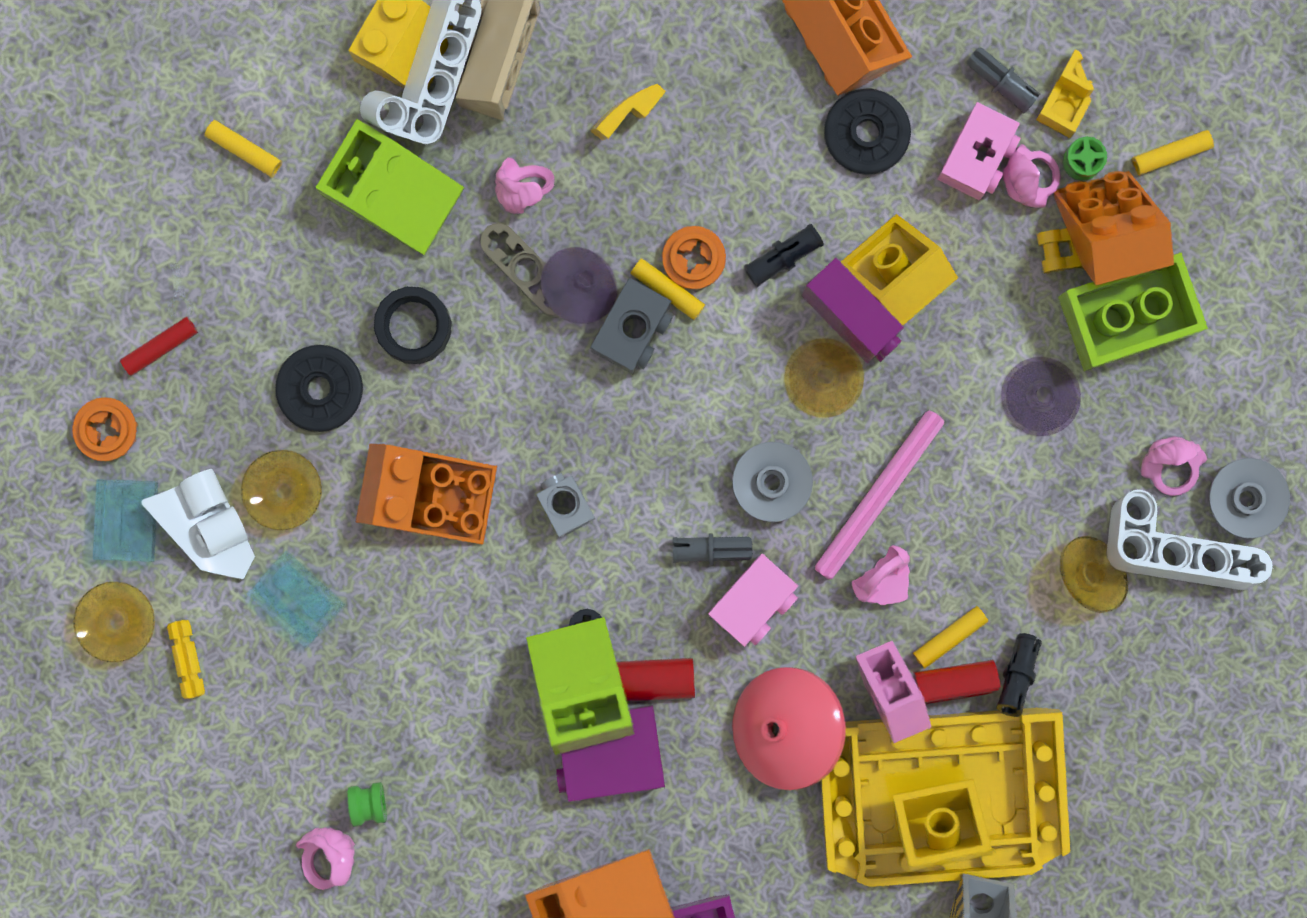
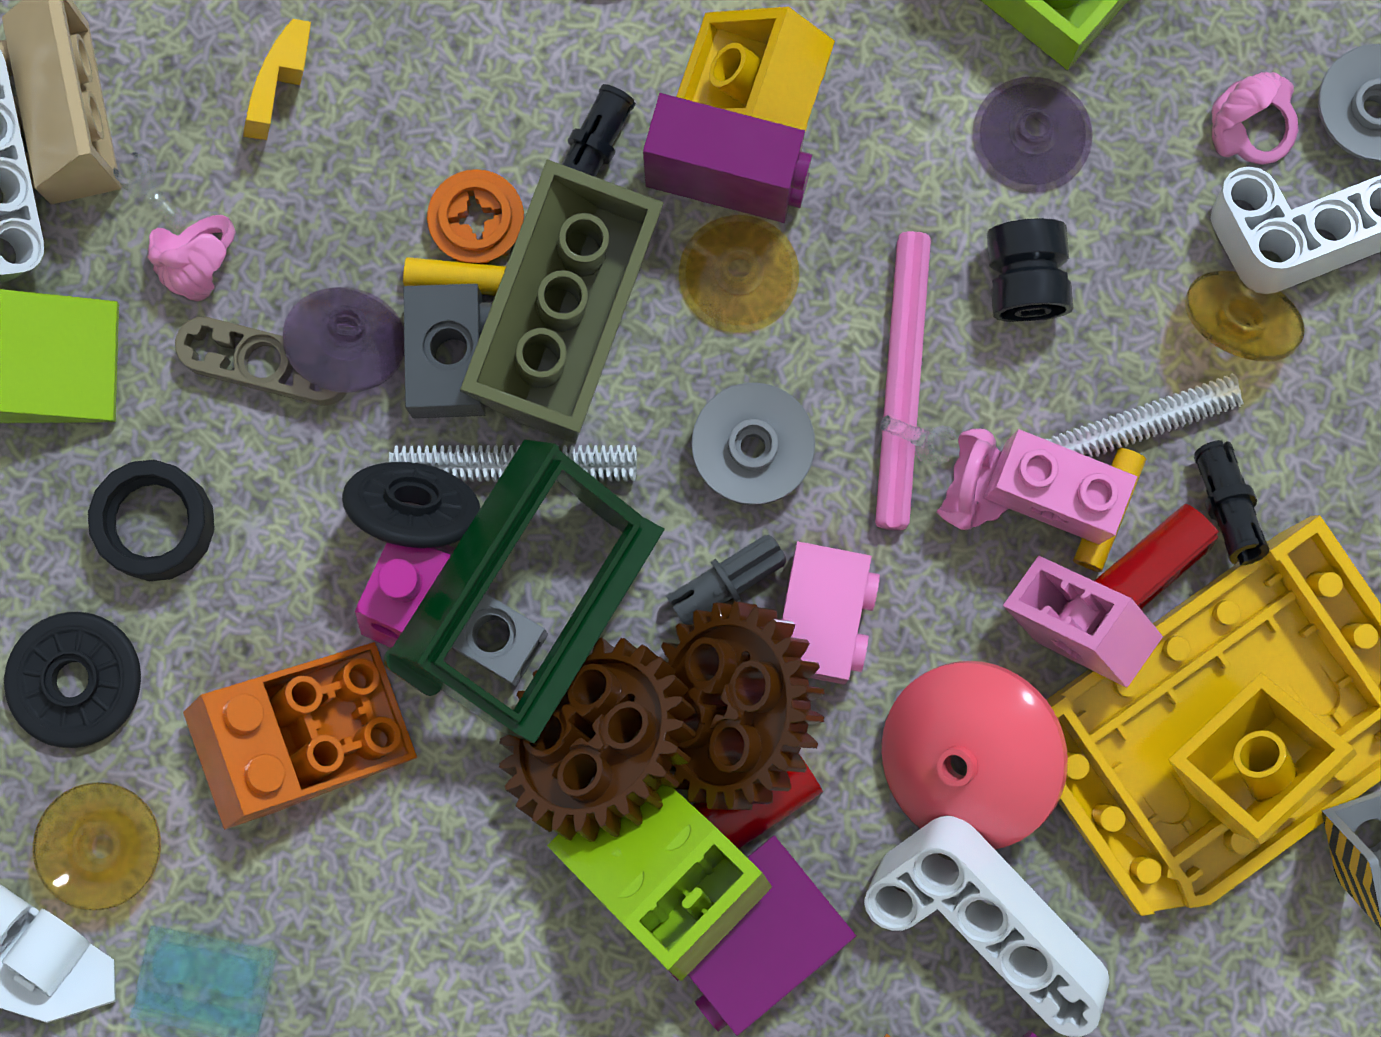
camera: 30 degrees left, 5 degrees down
(533, 450) = (397, 589): none -> dark pink torso
(539, 398) = (376, 497): none -> black wheel
(579, 462) = (476, 562): none -> dark green piece
(587, 595) = (599, 743): none -> reddish brown gear
(630, 411) = (495, 463): none -> white axle
(672, 623) = (747, 704): none -> reddish brown gear
(713, 339) = (561, 300): none -> olive slope
(749, 823) = (1059, 981): none -> white beam
(867, 533) = (920, 438): none -> clear hand
(926, 610) = (1060, 487): none -> bright pink brick
(987, 595) = (1153, 417): none -> white axle
(988, 474) = (1029, 259): none -> black wheel

